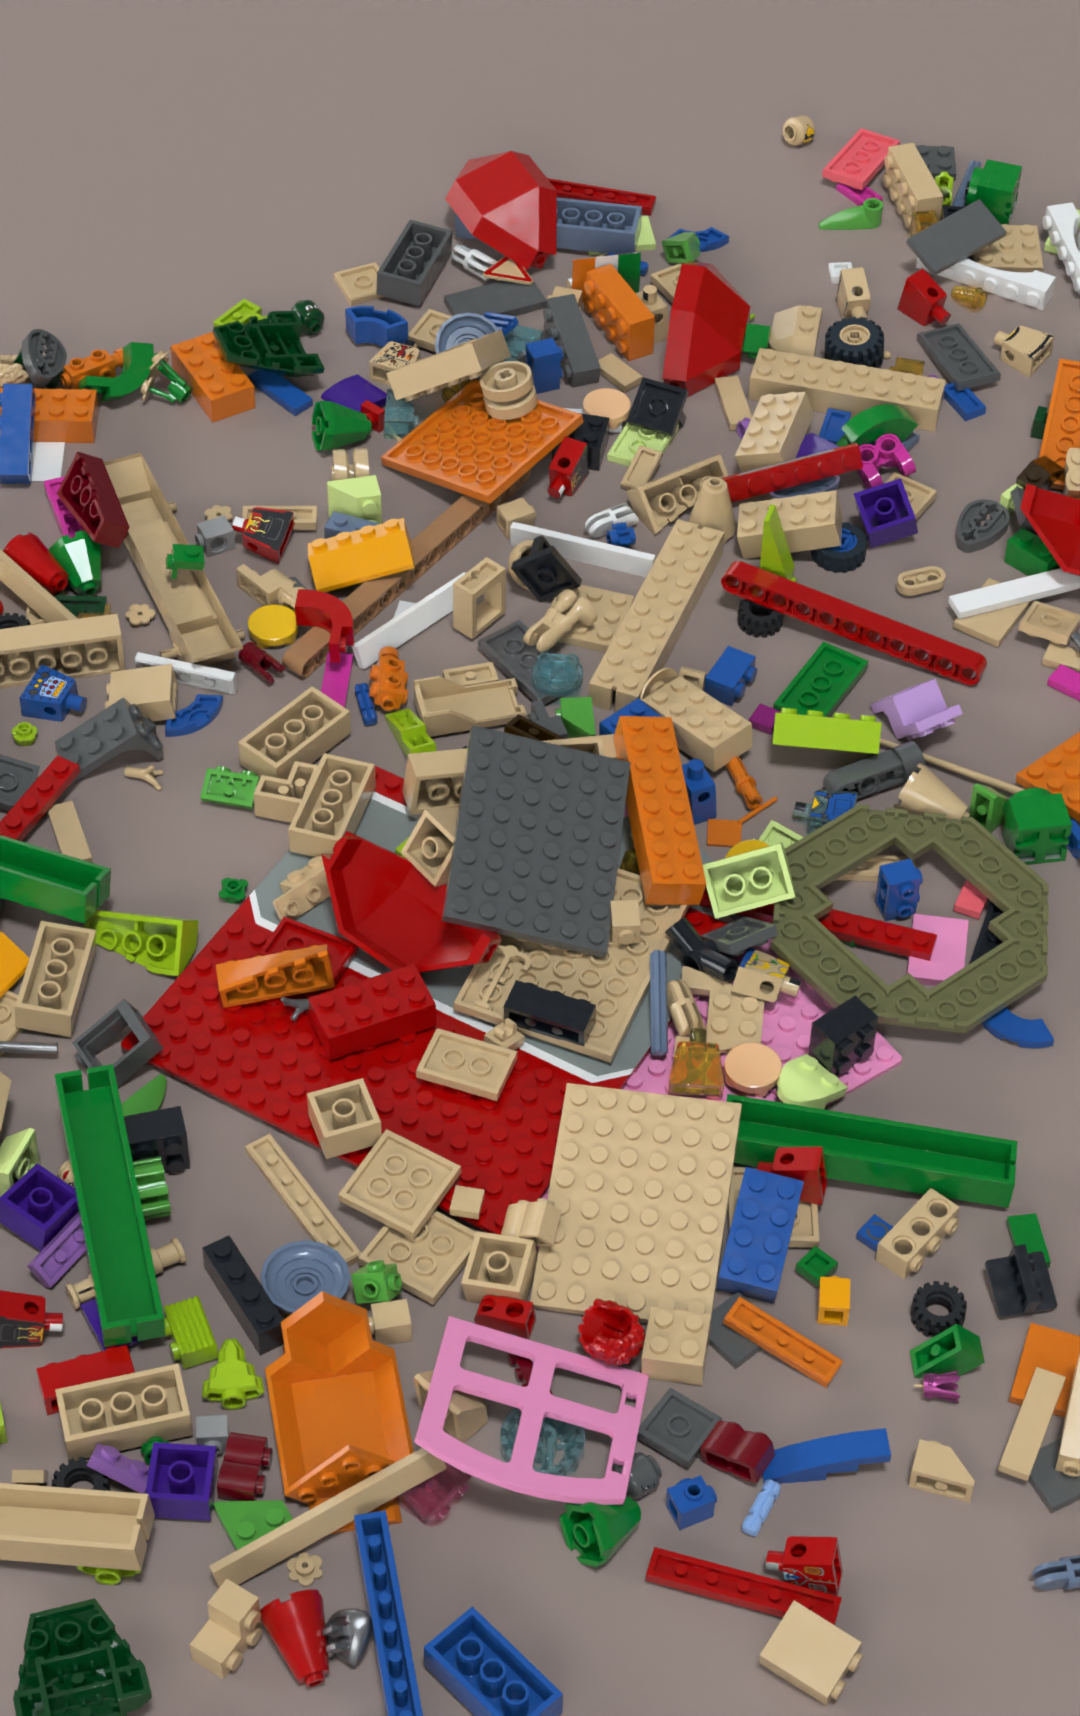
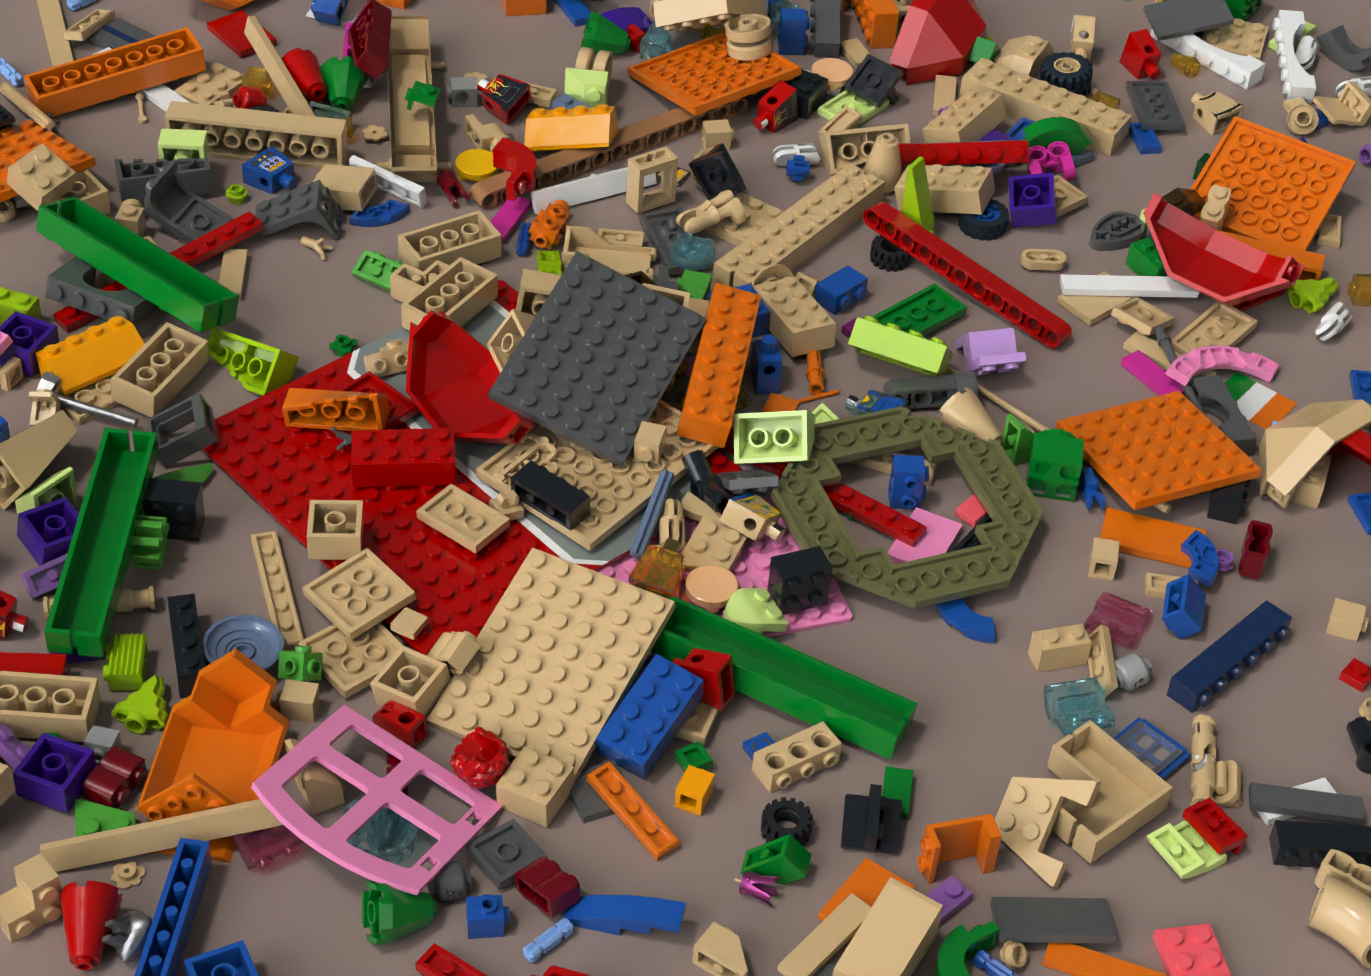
camera: 15 degrees right, 5 degrees down
(587, 550) = (765, 171): white tile -> none

